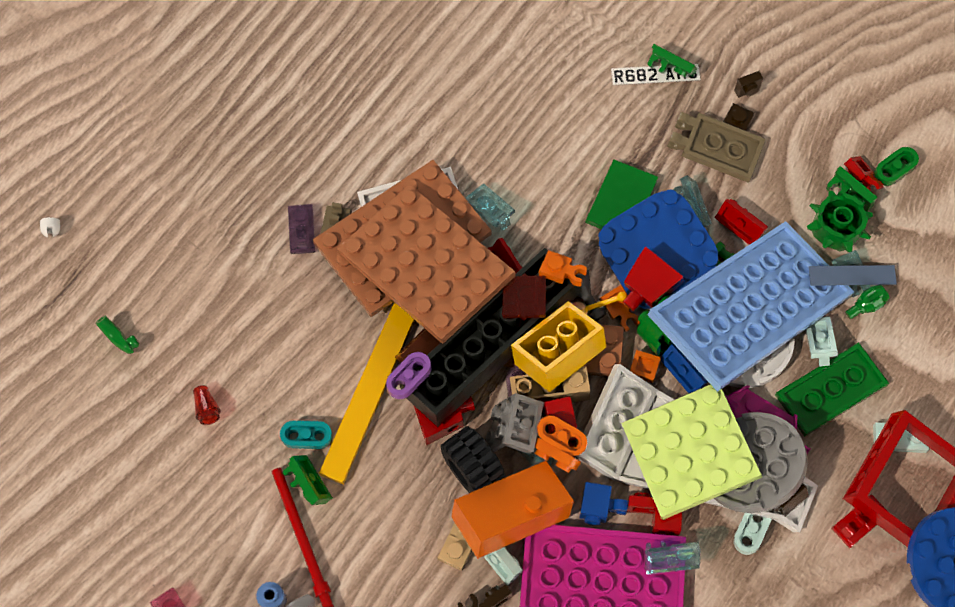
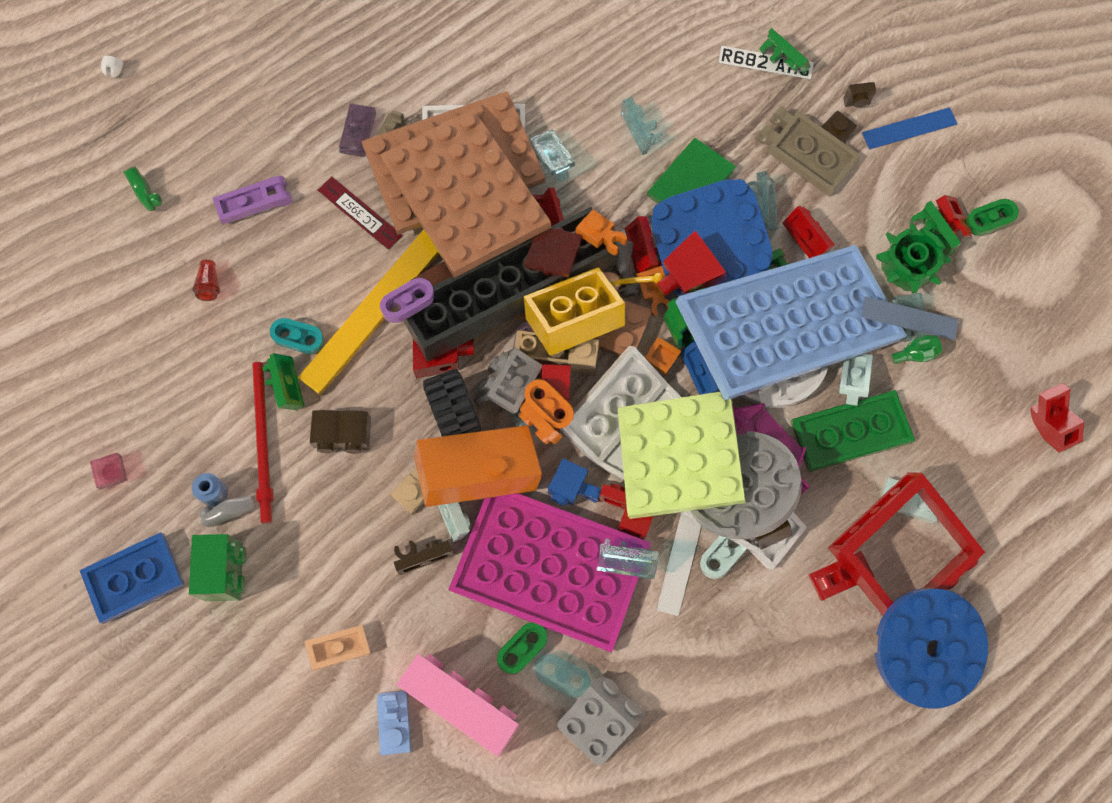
camera: 15 degrees right, 5 degrees up
(224, 318) = (252, 199): none -> medium lavender plate
(326, 305) = (359, 212): none -> sticker
(374, 511) = (340, 430): none -> dark brown brick
(563, 166) = (640, 131): none -> clear light blue plate
(600, 276) = (643, 252): none -> red plate
(715, 551) = (679, 565): none -> white sticker
(800, 103) = (909, 128): none -> blue sticker

